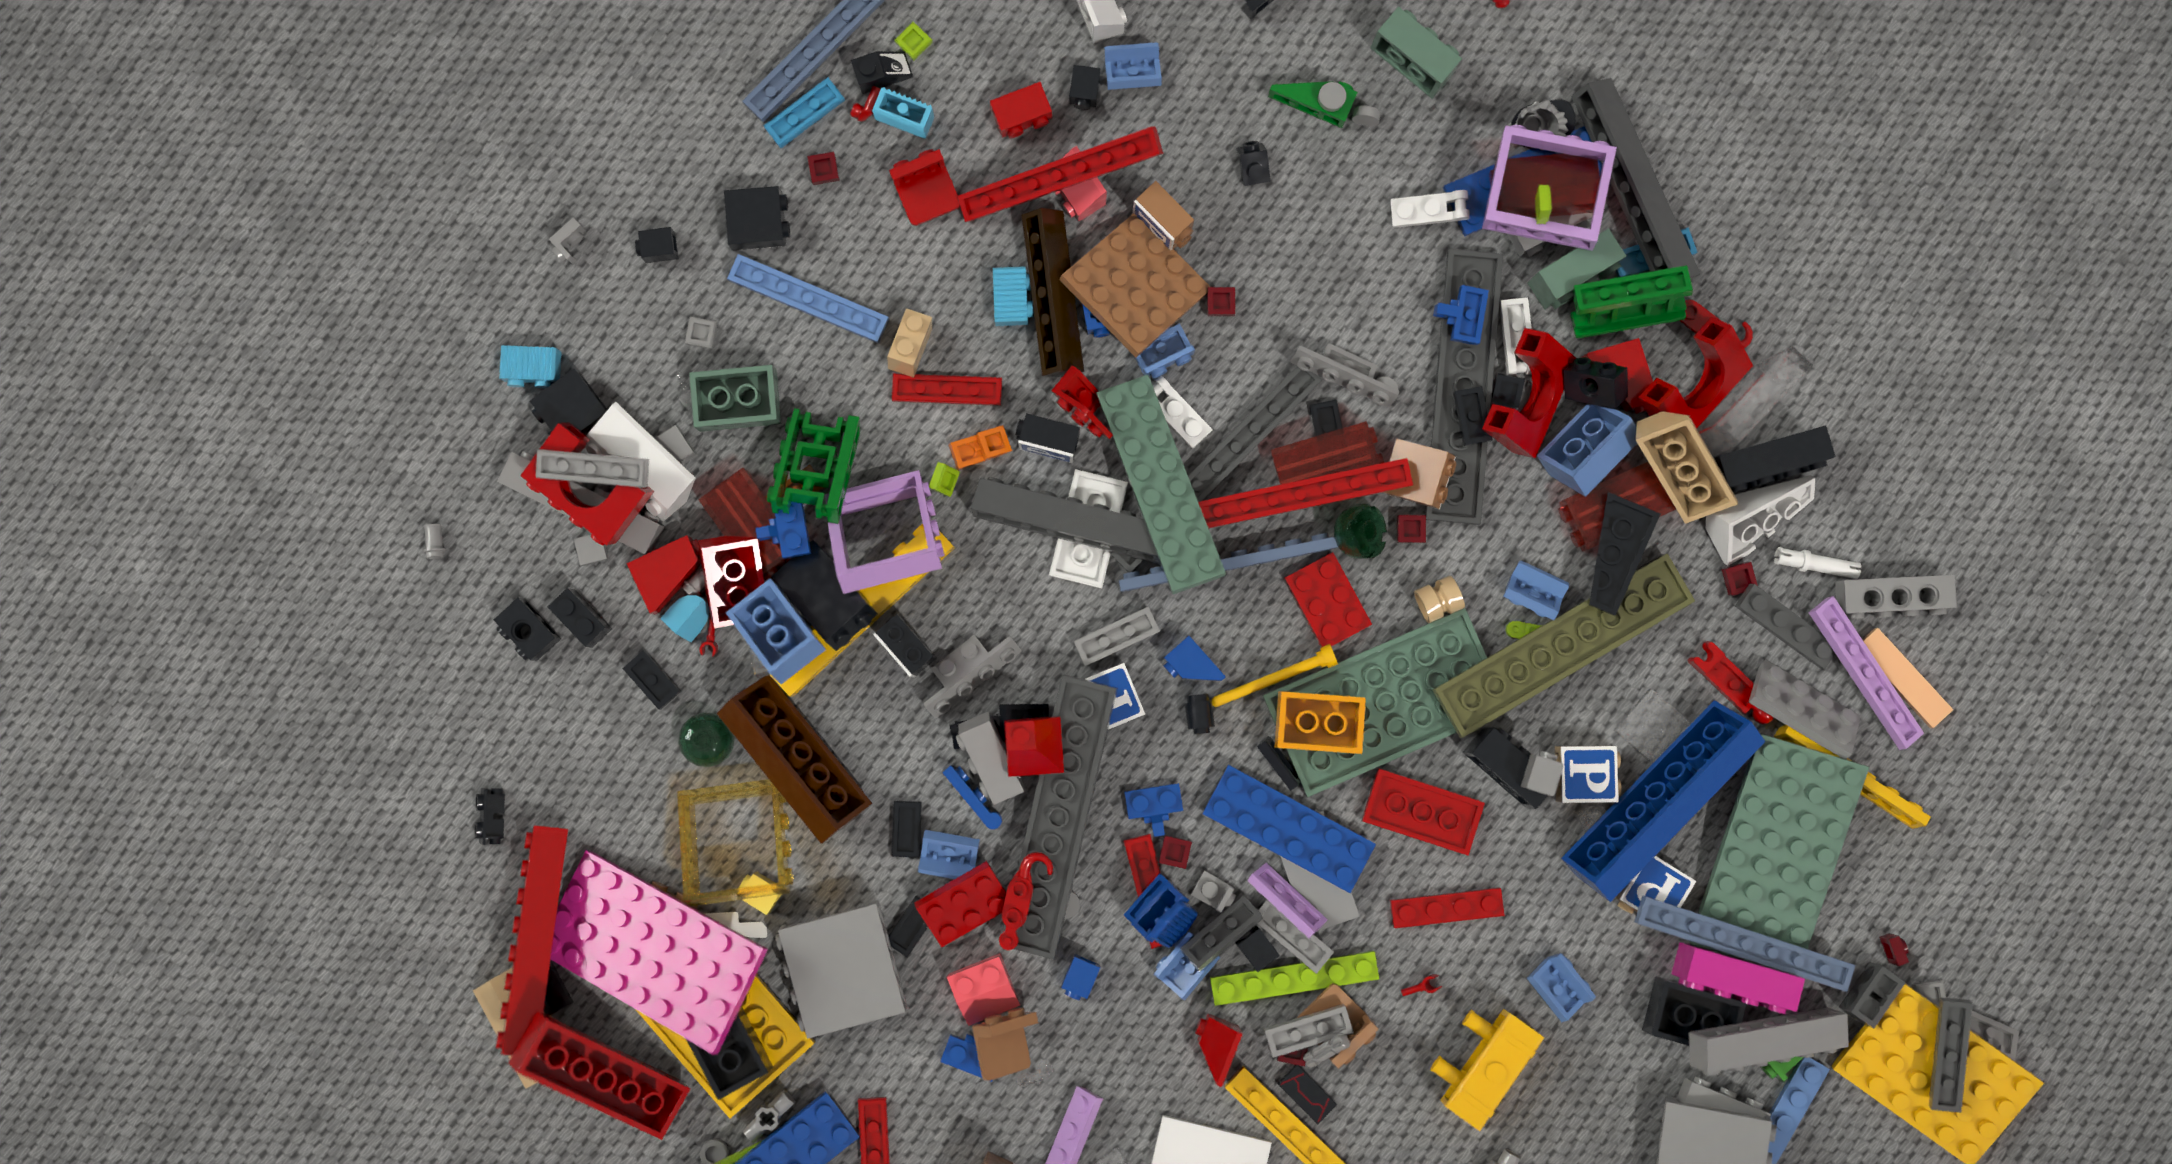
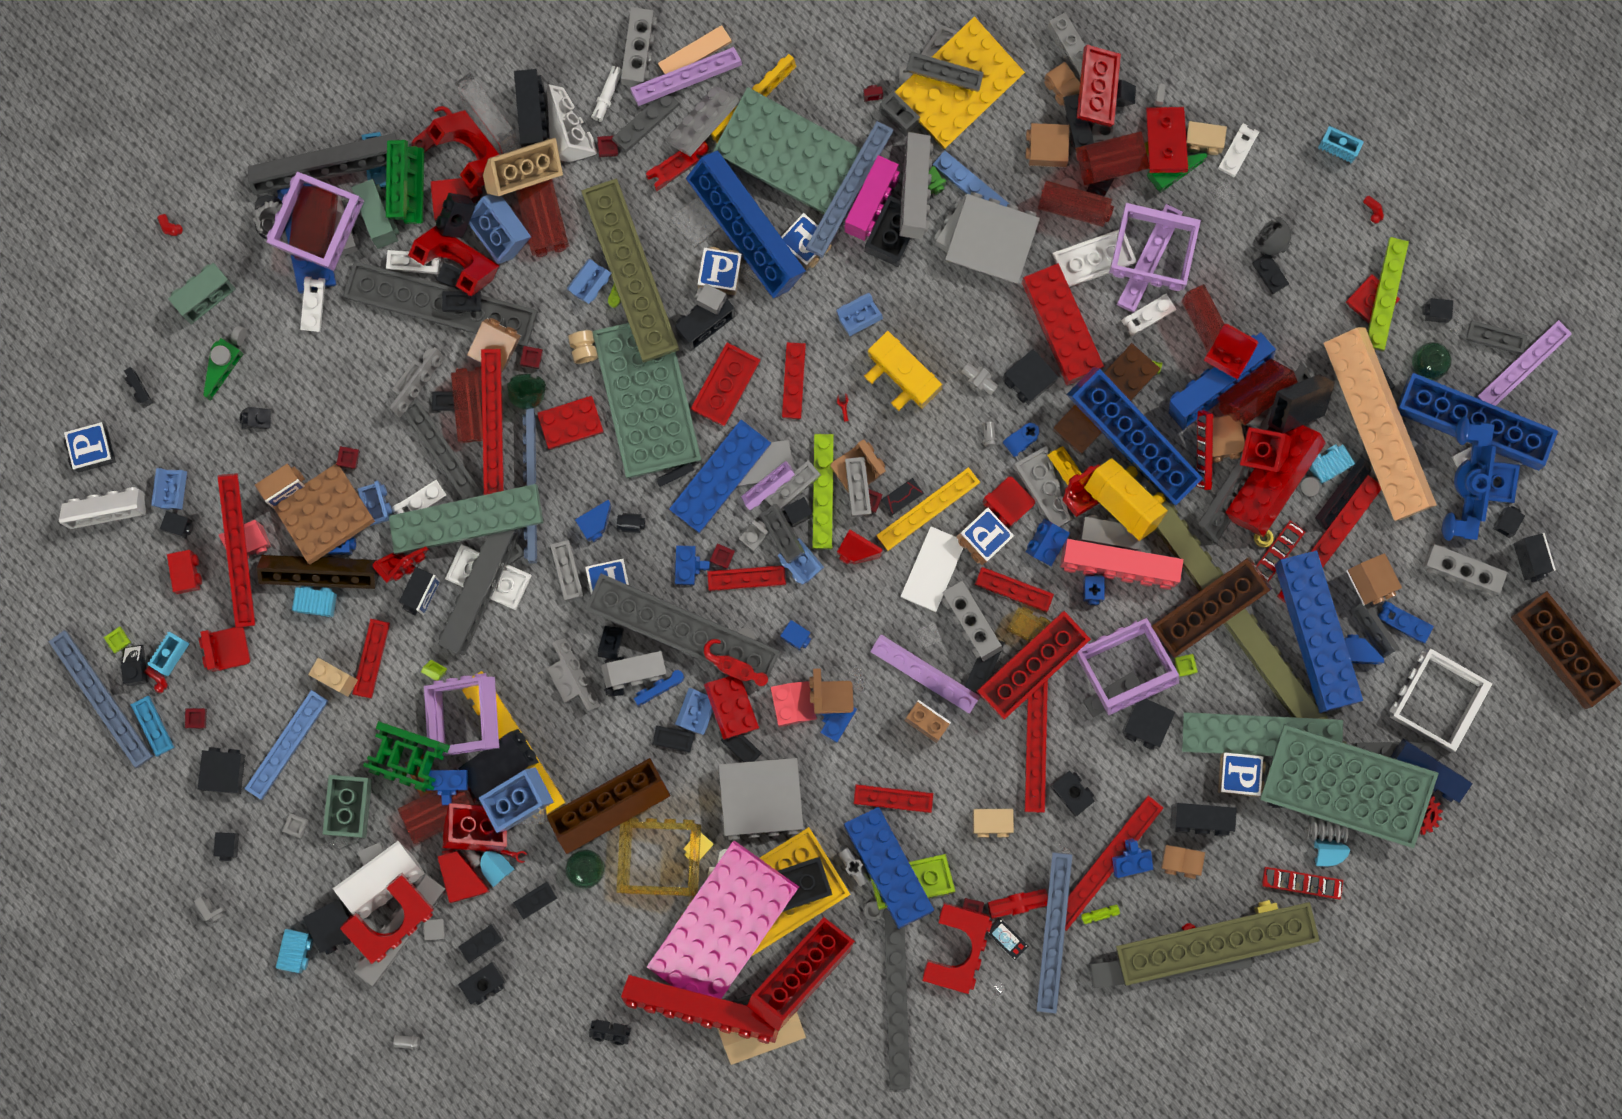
camera: 80 degrees left, 5 degrees down
(592, 468) = (376, 909): light grey tile -> none
(905, 646) = (545, 715): black piece -> none
(980, 447) = (416, 642): orange slope -> none
(1034, 746) = (630, 636): red slope -> none
(1161, 913) = (760, 570): blue piece -> none
(1320, 722) = (650, 441): light orange brick -> none
(1323, 658) = (608, 432): yellow piece -> none
(1326, 1050) = (872, 476): light grey axle -> none
(1465, 314) = (390, 293): blue hinge -> none
(1543, 204) = (326, 226): lime tile -> none
(1620, 549) = (571, 220): black wing -> none

